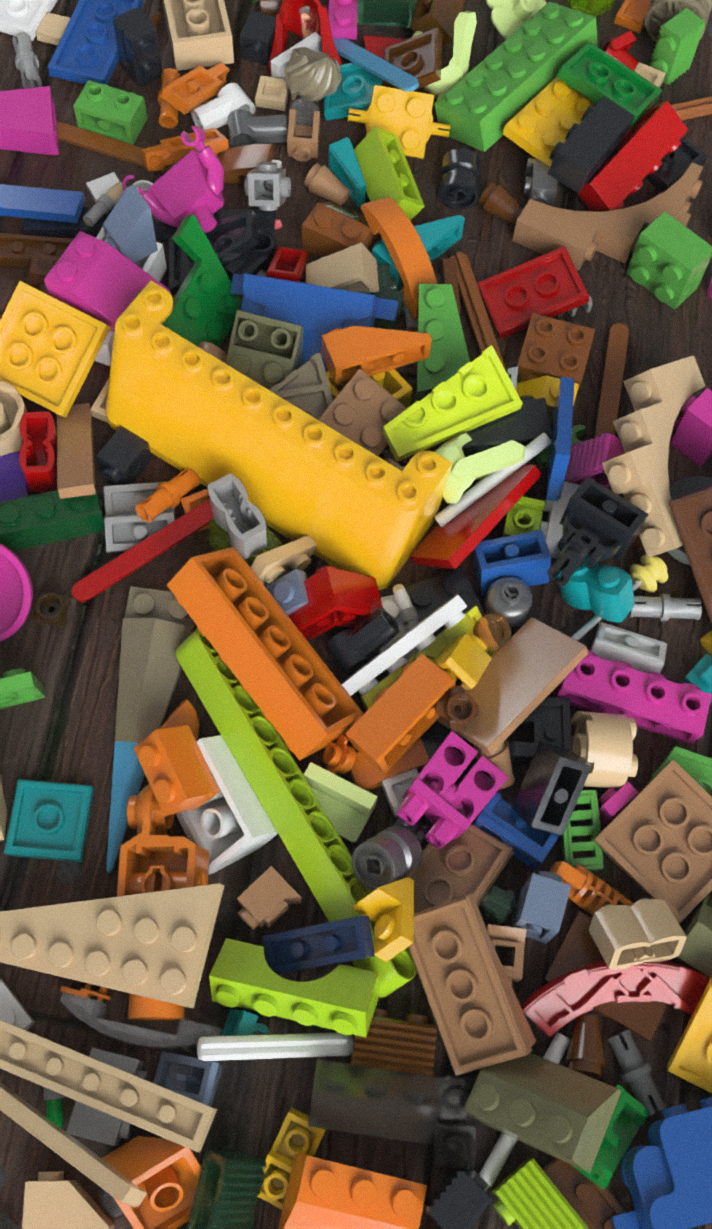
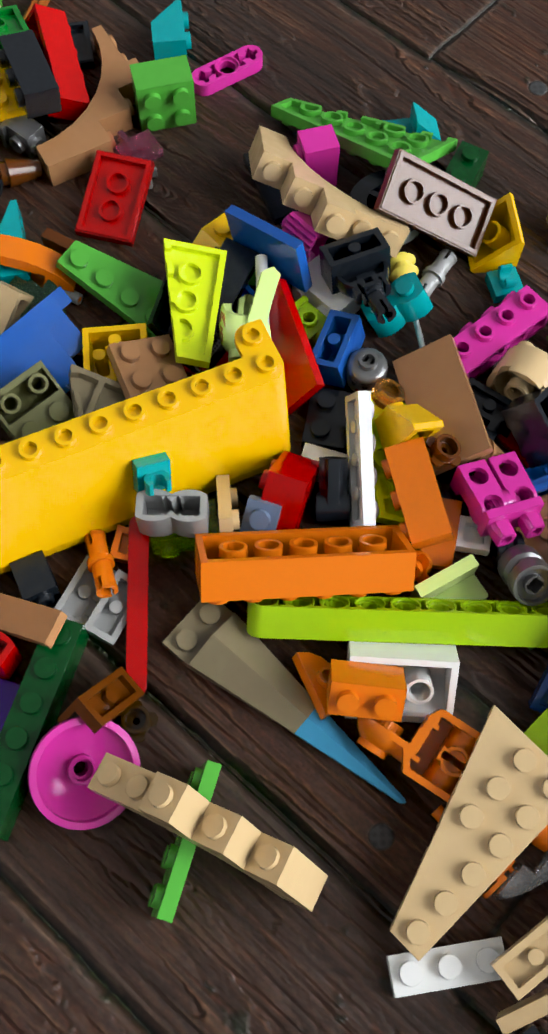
camera: 55 degrees left, 0 degrees up
(44, 568) = (104, 700): none -> reddish brown panel
(49, 820) = (329, 828): teal tile -> none
(255, 474) = (152, 473): none -> teal tile
(266, 900) = (503, 686): medium nougat window -> none
(371, 350) = (94, 329): orange slope -> none
(407, 612) = (330, 444): piece -> none
(474, 305) = (114, 249): dark orange axle -> none
(554, 349) = (177, 212): dark orange brick -> none
(603, 280) = (140, 146): none -> clear pink bracket
(612, 379) = (219, 189): dark orange piece -> none
(626, 646) = (451, 317): white slope -> none

